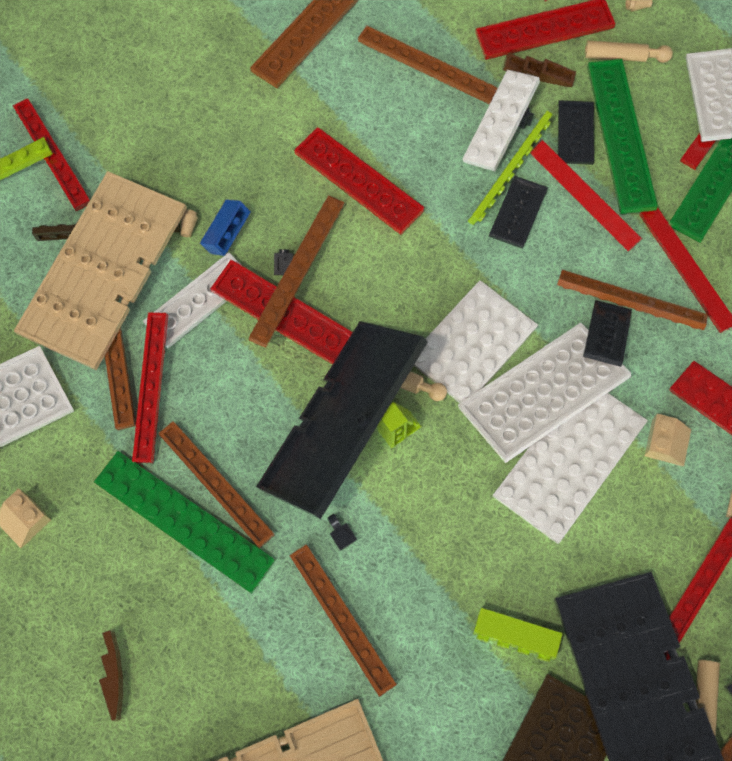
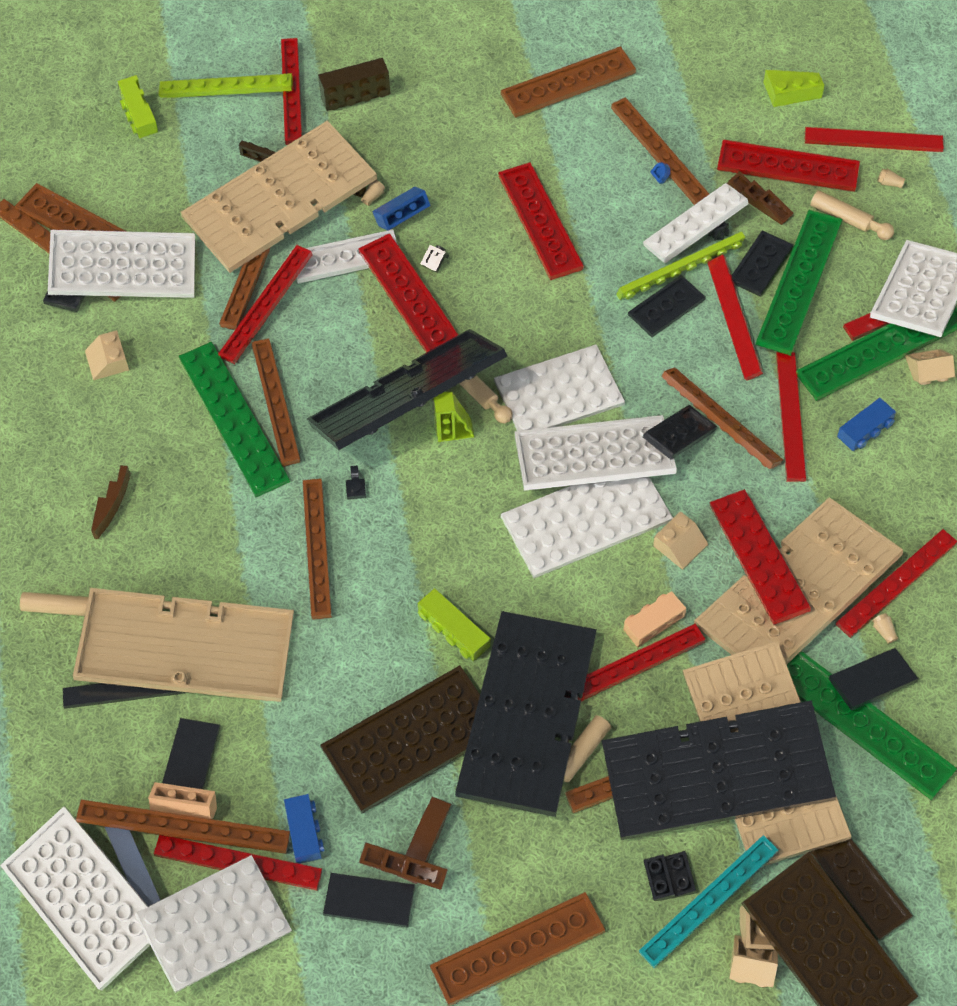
camera: 25 degrees right, 10 degrees down
(110, 121) = (354, 84): none -> dark brown brick
(296, 272) = (440, 266): dark orange plate -> none
(439, 84) = (661, 172): none -> blue tile
(691, 531) = (654, 618): none -> light nougat brick

